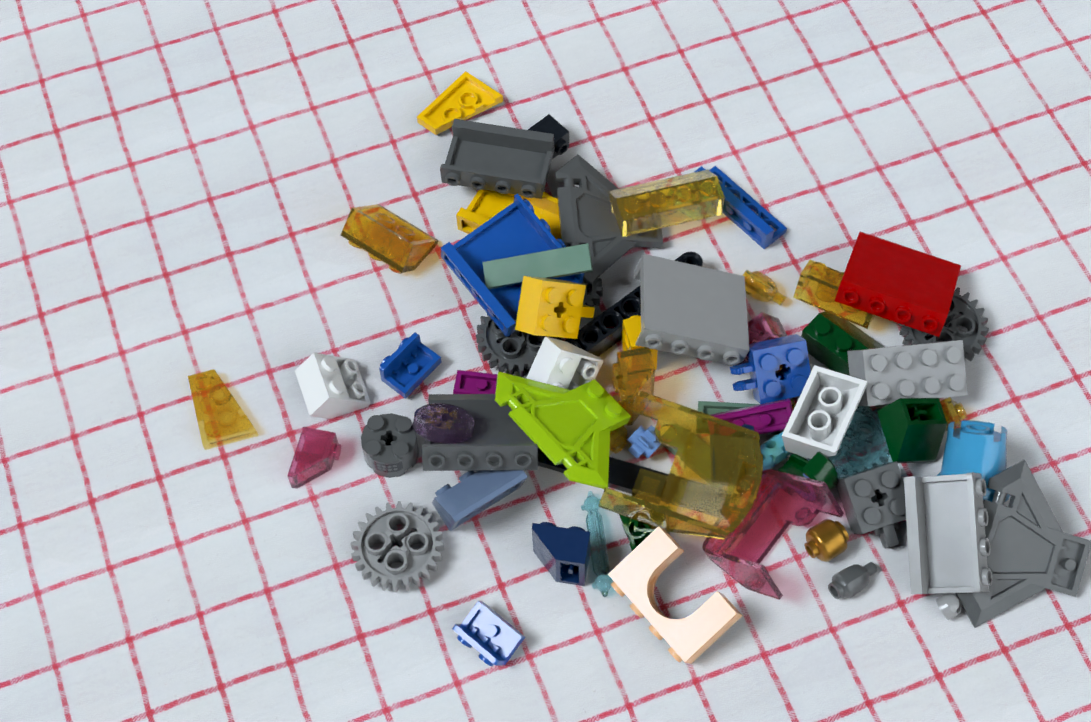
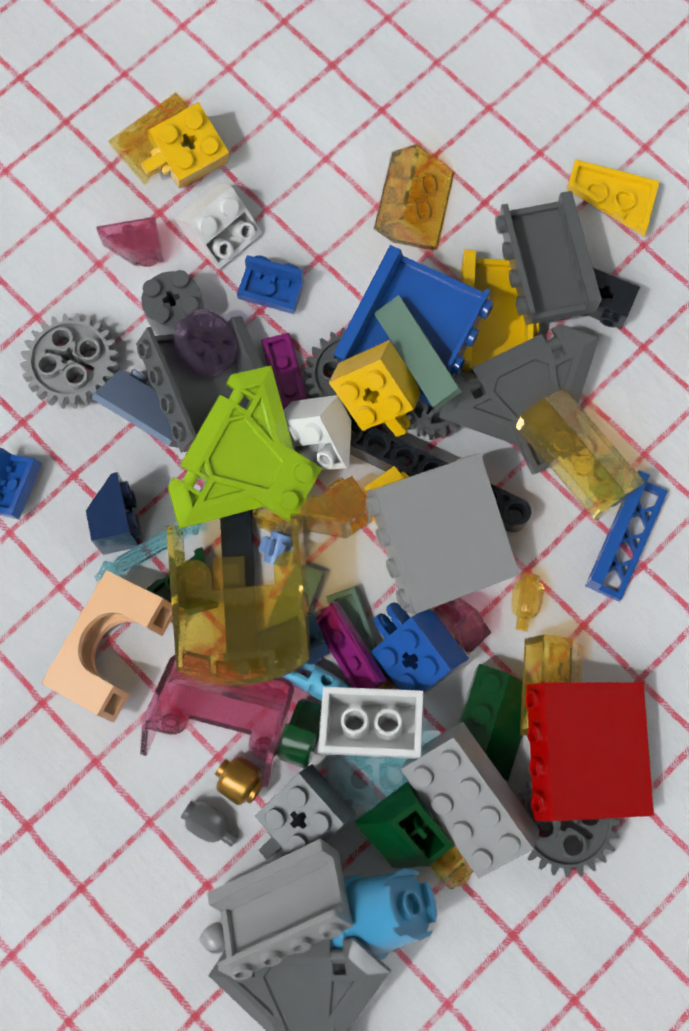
camera: 65 degrees right, 15 degrees up
(251, 380) = (183, 164): none -> yellow hinge

